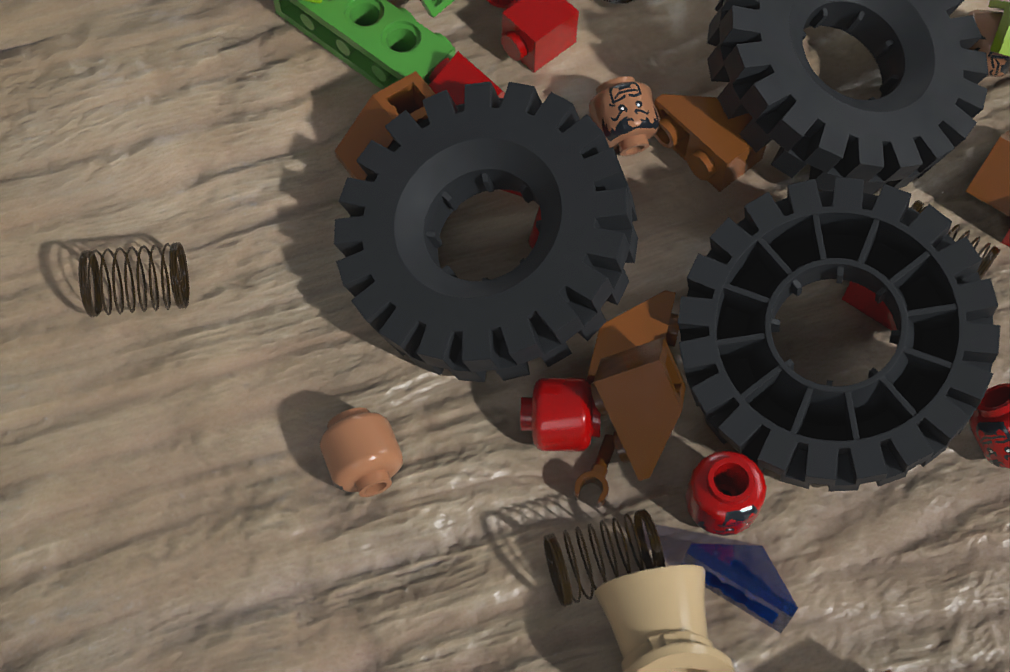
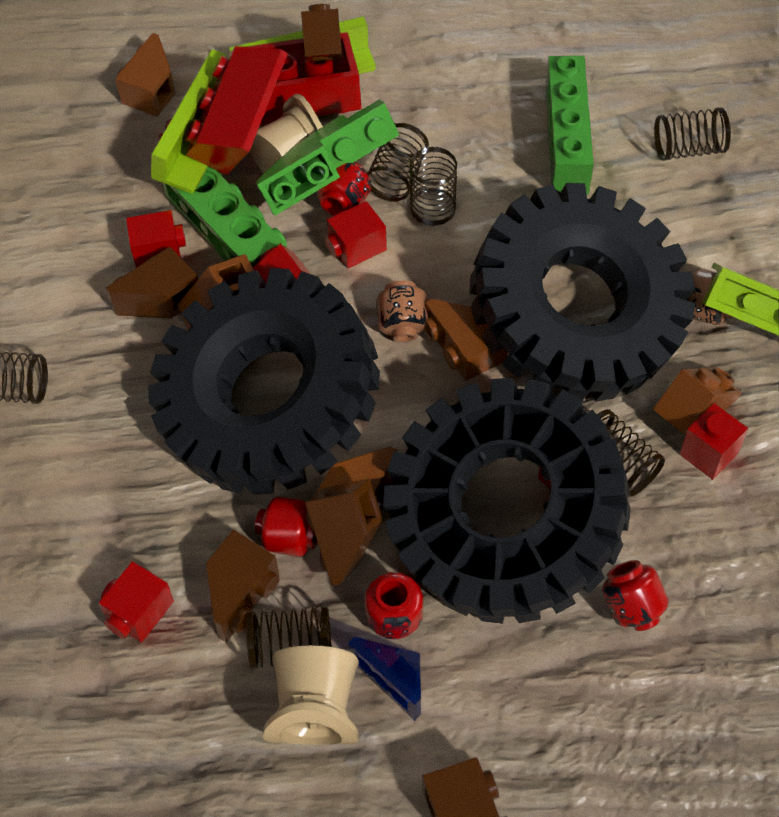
camera: 15 degrees right, 5 degrees down
(283, 70) = (153, 234): none -> red brick
(299, 132) = (152, 287): none -> reddish brown slope
(361, 452) = (132, 528): nougat head -> none
(389, 548) = (135, 602): none -> red brick
(512, 495) = (237, 580): none -> reddish brown slope
(598, 471) = (305, 577): reddish brown hand -> none

